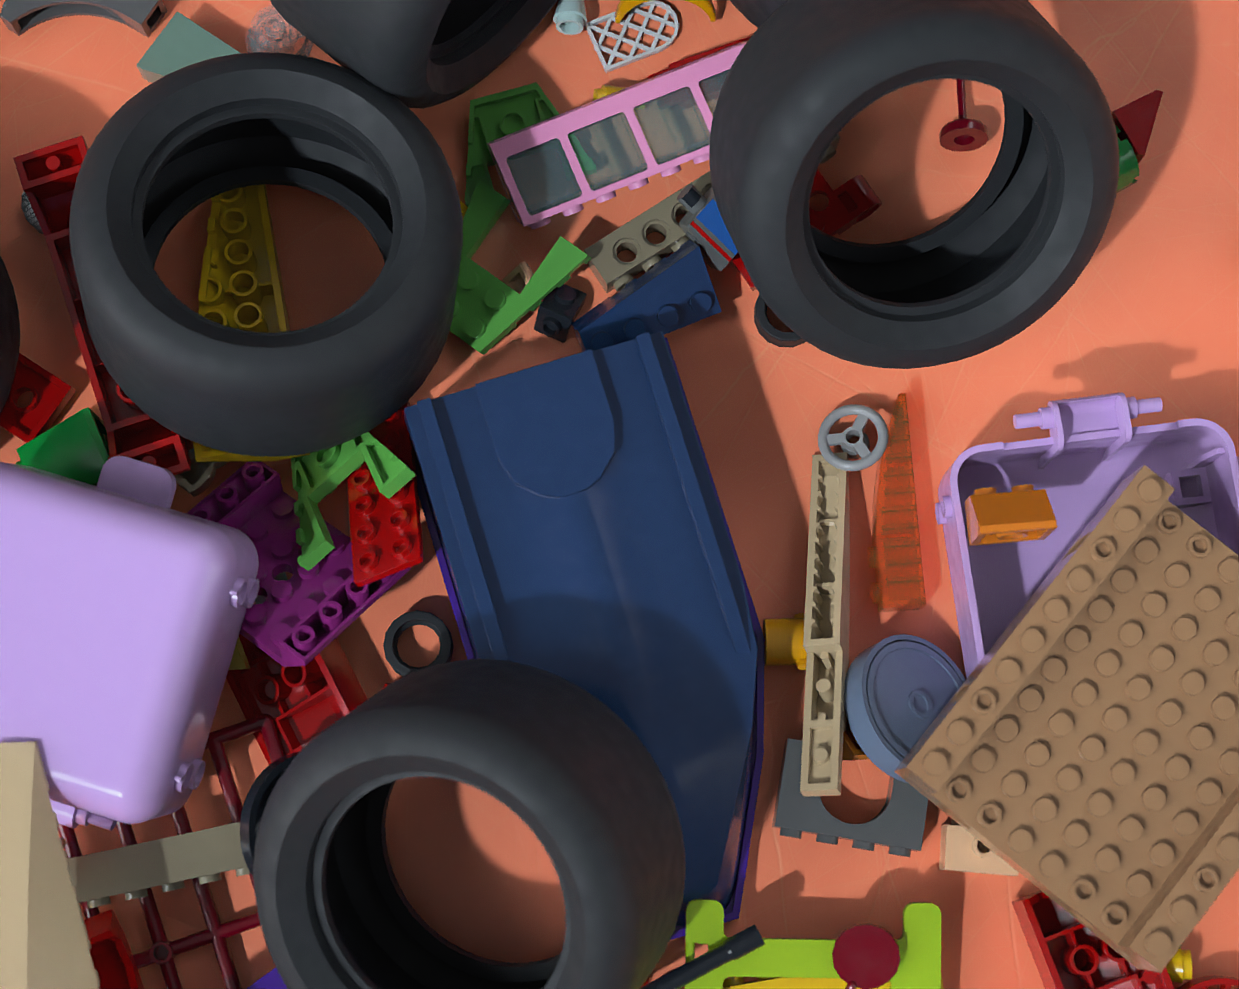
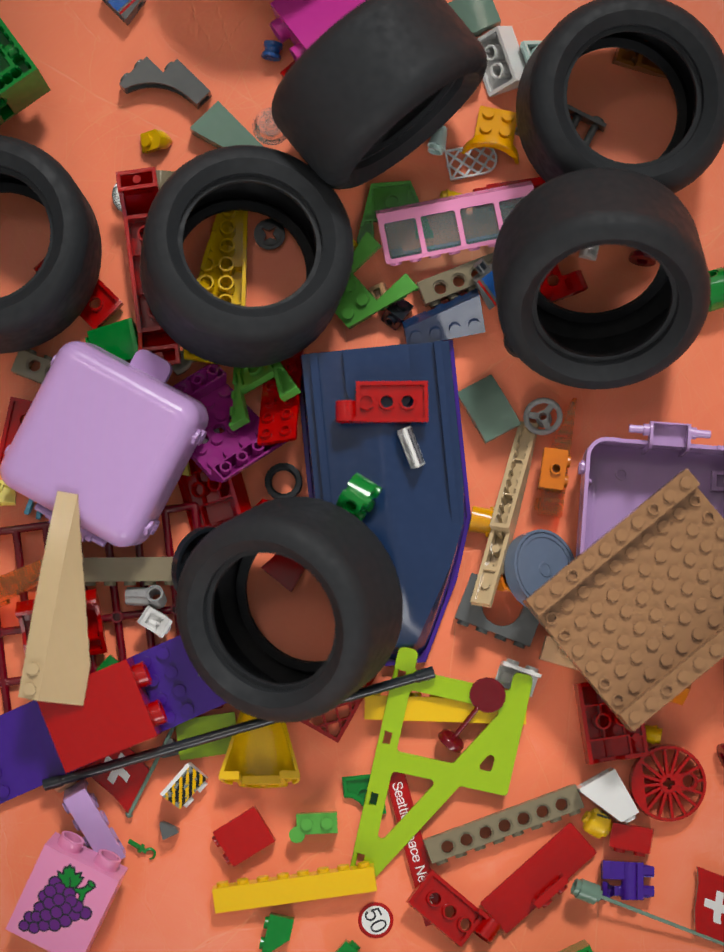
camera: 15 degrees right, 5 degrees up
(80, 101) = (154, 141): none -> yellow plate
(203, 905) = (143, 596): none -> light grey piece
(232, 947) = (155, 621): none -> white bracket
(307, 206) = (269, 225): none -> black gear
(450, 805) = (284, 571): none -> red torso
(545, 477) = (370, 410): none -> red hinge
(558, 638) = (359, 496): none -> green brick
(634, 532) = (411, 447): none -> white slope
(755, 444) = (488, 409): none -> sand green slope
(867, 138) = (589, 253): none -> white slope
(893, 896) = (510, 667): none -> white bracket
(894, 524) = (553, 469): none -> orange brick
(1009, 516) = (612, 479): orange slope -> none

